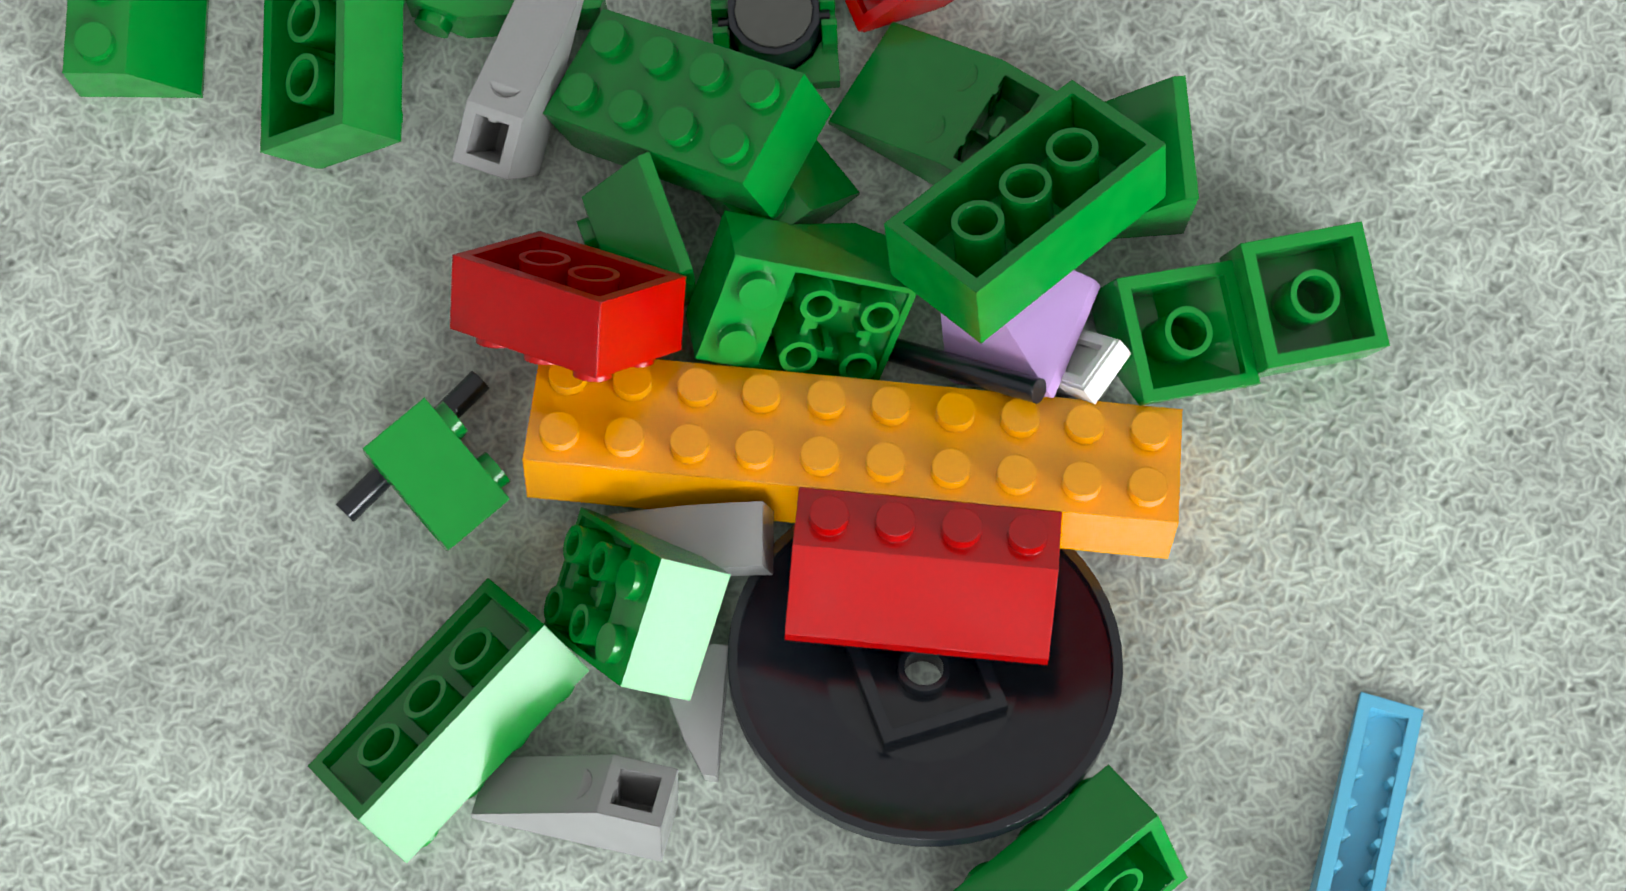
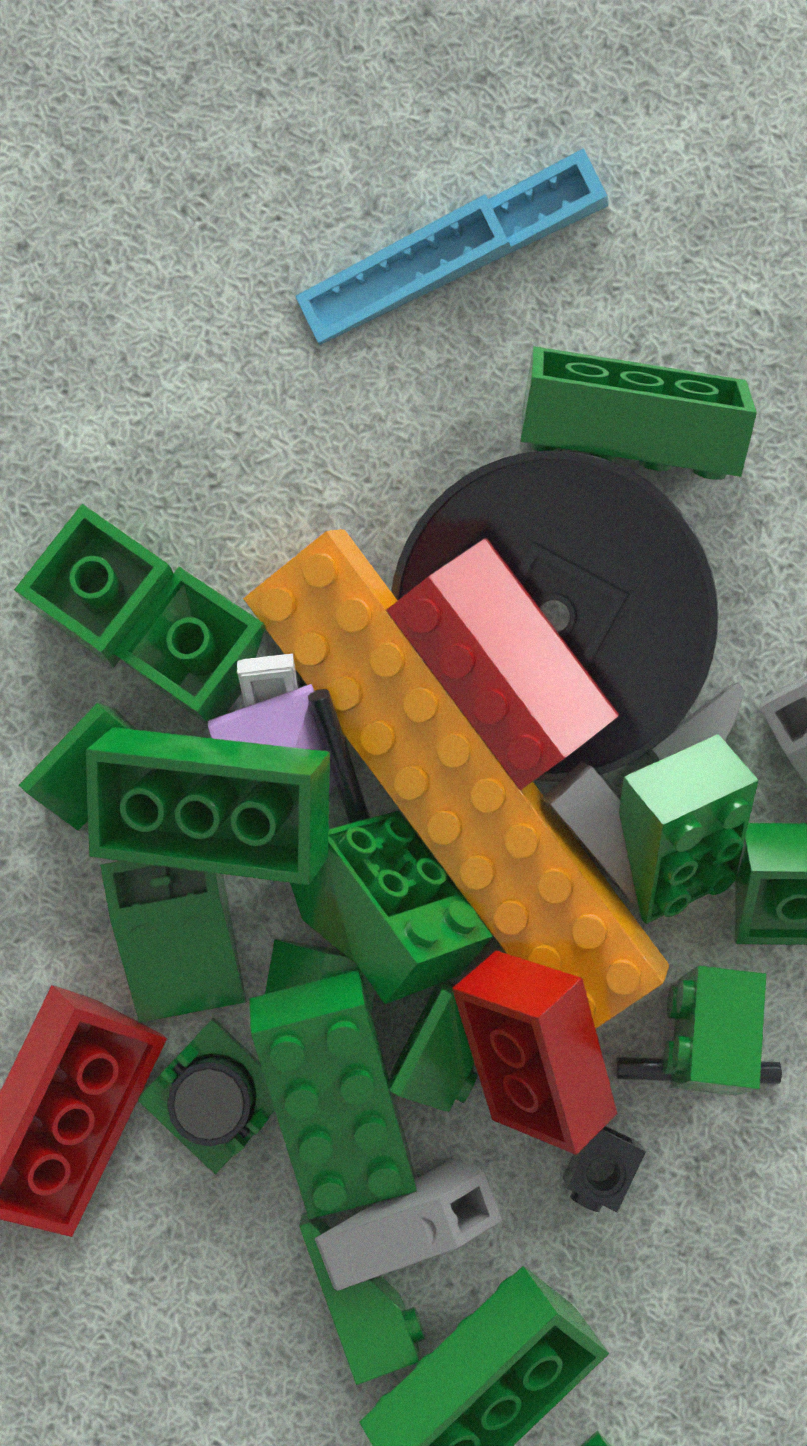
camera: 135 degrees left, 10 degrees up
(417, 314) = (610, 1192): none -> black brick

